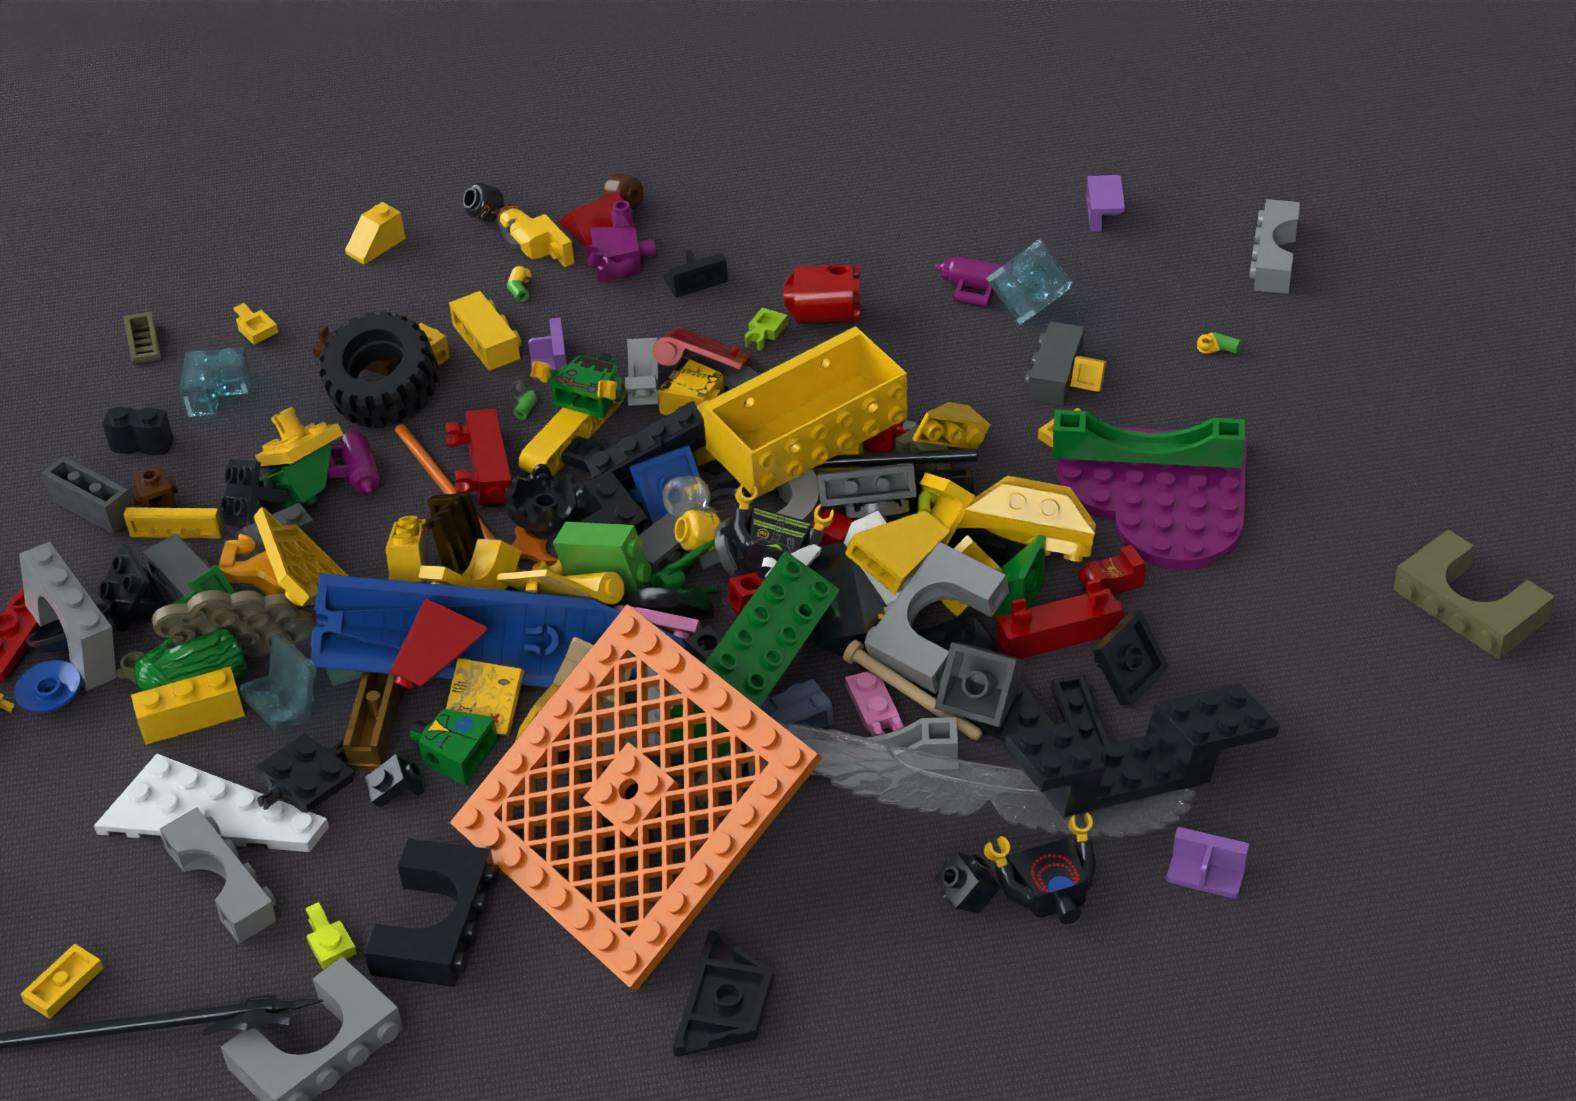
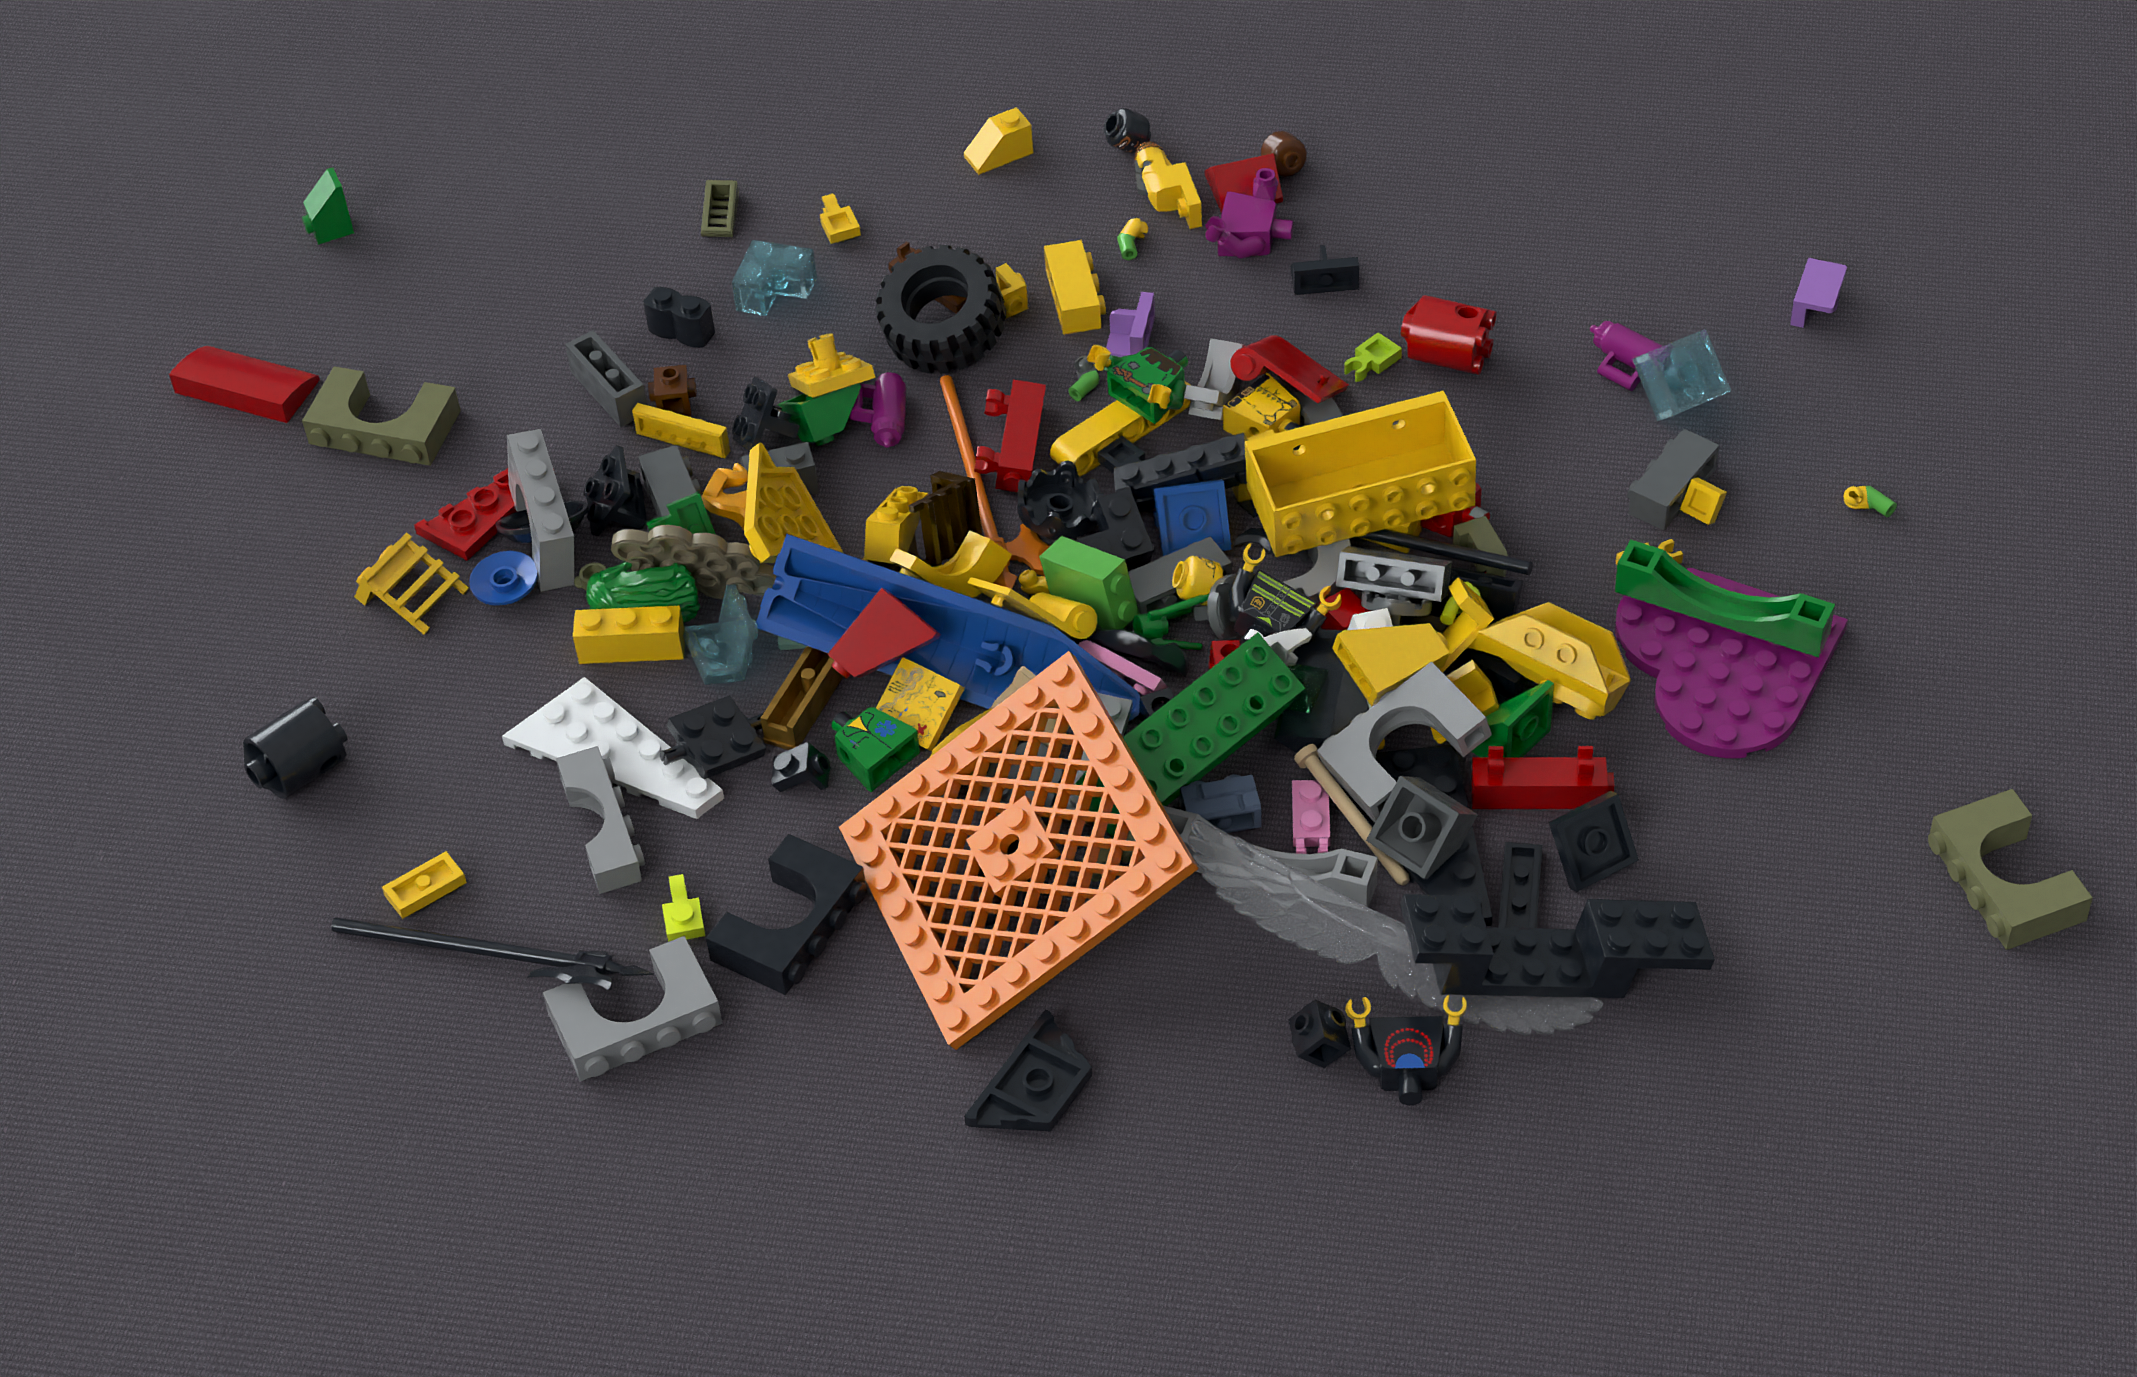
camera: 20 degrees right, 5 degrees up
(685, 494) = (1198, 537): clear head -> none
(952, 426) = (1518, 527): yellow slope -> none
(1117, 572) = (1625, 741): red leg -> none
(1208, 862) = (1579, 1083): medium lavender panel -> none
(1274, 228) = (2004, 371): light grey arch -> none

